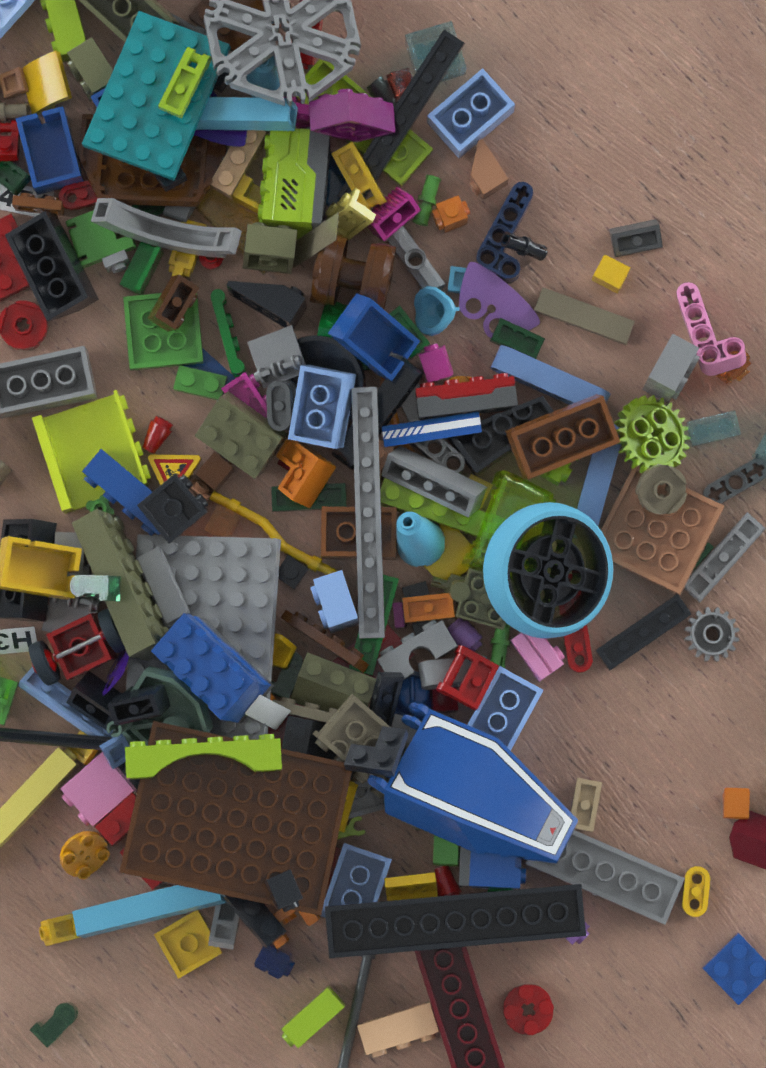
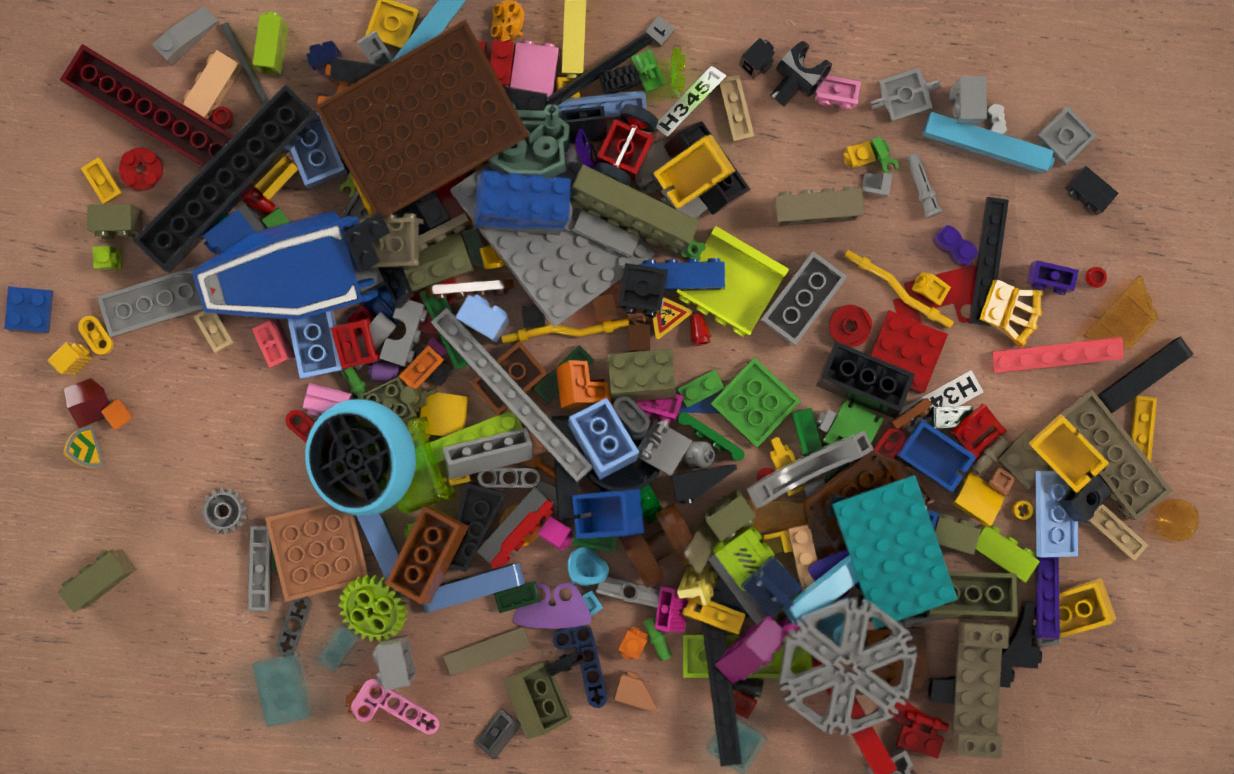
camera: 130 degrees right, 5 degrees up
(10, 42) = (1016, 512): none -> yellow bush
(31, 713) = (619, 79): none -> black tyre
(89, 585) = (642, 194): leg -> none
(115, 750) = (539, 99): medium blue tile -> none
(139, 704) = (547, 138): black brick -> none
(173, 303) = (761, 423): reddish brown brick -> none
(184, 83) = (881, 574): lime plate -> none
(251, 324) = (699, 455): none -> light grey head
(257, 755) = (442, 171): lime arch -> none
(267, 712) = (463, 207): white sticker -> none
(284, 891) = (347, 98): black brick -> none
(286, 153) = (772, 586): none -> dark blue bracket
(414, 992) = (222, 117): none -> red plate
(418, 540) = (464, 406): medium azure cone -> none
(431, 429) = (519, 486): blue sticker -> none
(470, 113) = (678, 723): light blue brick -> none
(542, 745) = (273, 343): none -> coral hinge
(572, 1028) = (101, 181): none -> yellow plate
(576, 236) = (537, 700): none -> olive slope
(589, 978) = (113, 220): none -> olive brick
(611, 274) = (492, 694): yellow panel -> none
(626, 952) = (107, 258): none -> lime brick
(643, 632) = (270, 473): black plate -> none
(647, 489) = (345, 576): dark tan plate -> none
(735, 887) = (70, 358): none -> yellow brick

